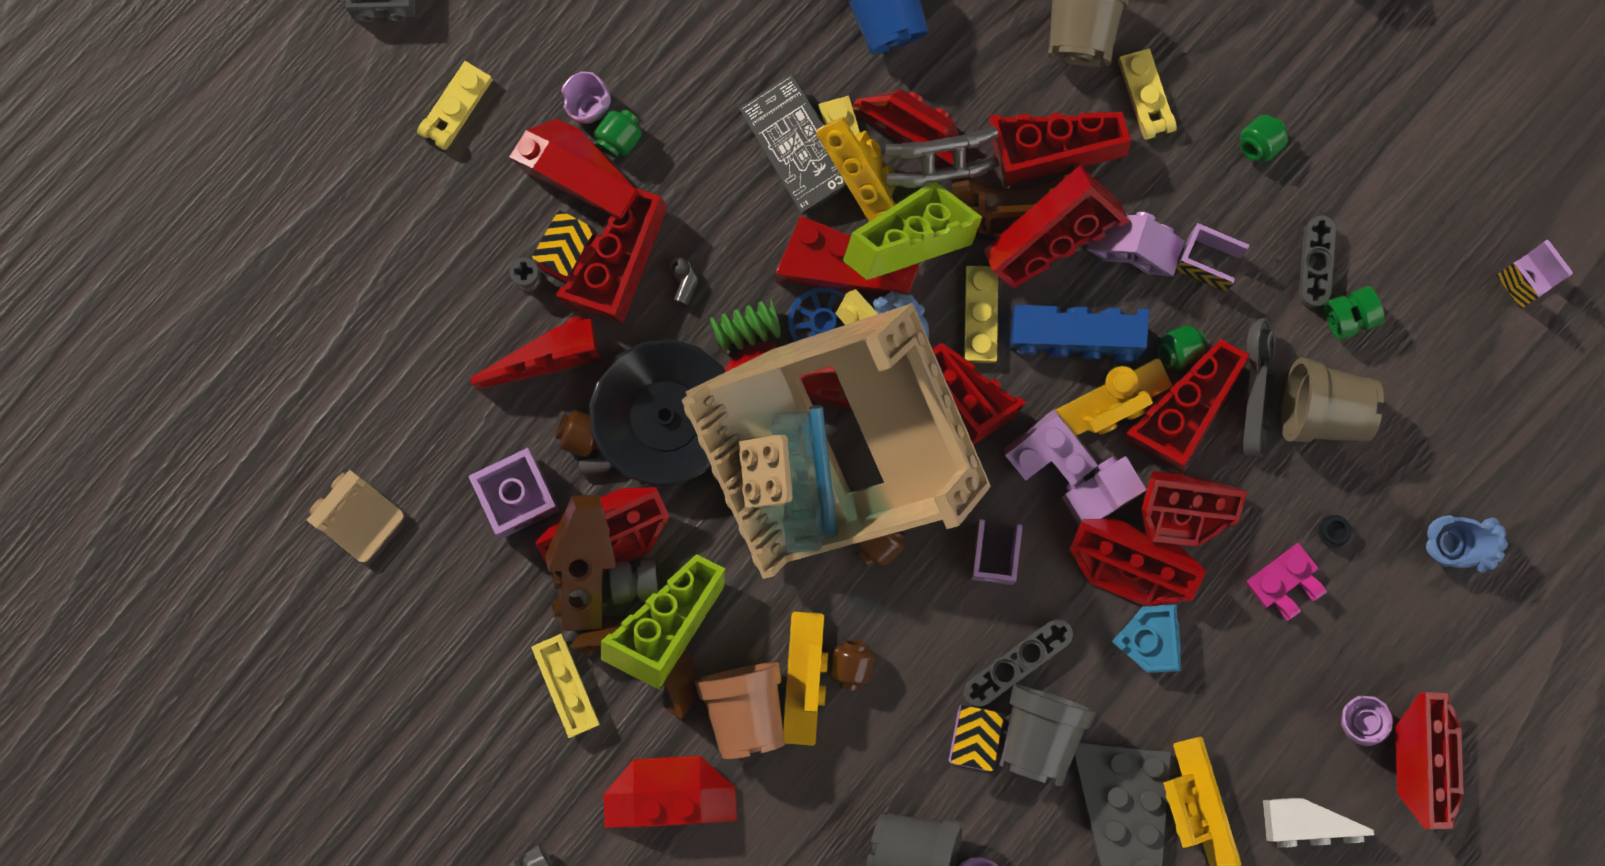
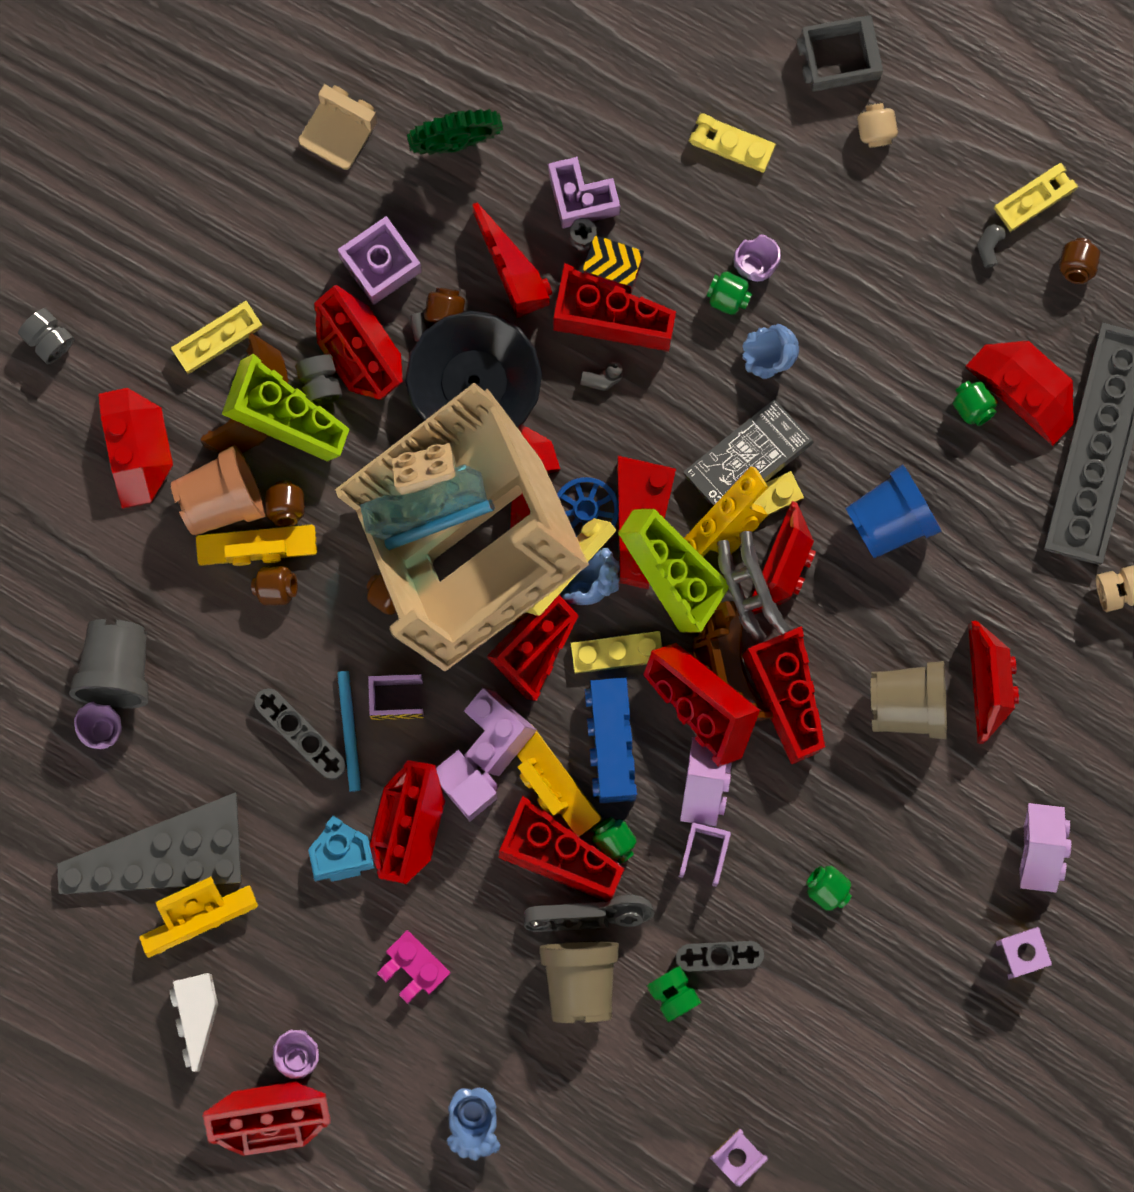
camera: 75 degrees right, 0 degrees up
(389, 386) = (454, 131): none -> dark green gear
(487, 273) = (577, 200): none -> lavender brick
(574, 165) = (694, 252): red wedge -> none
(585, 537) = (345, 327): reddish brown brick -> none
(689, 99) = (770, 351): none -> medium blue hair
(746, 327) = (566, 440): bright green piece -> none
(764, 639) = (284, 503): none -> reddish brown head
(976, 738) = (225, 704): piece -> none
(1022, 610) = (349, 731): none -> dark azure bar
(1043, 734) = (238, 761): dark grey piece -> none
(1121, 382) = (570, 786): yellow plate -> none
(1146, 93) = (856, 774): light yellow plate -> none
(1189, 508) = (463, 861): red wedge -> none
(1334, 531) = (466, 1005): black plate -> none

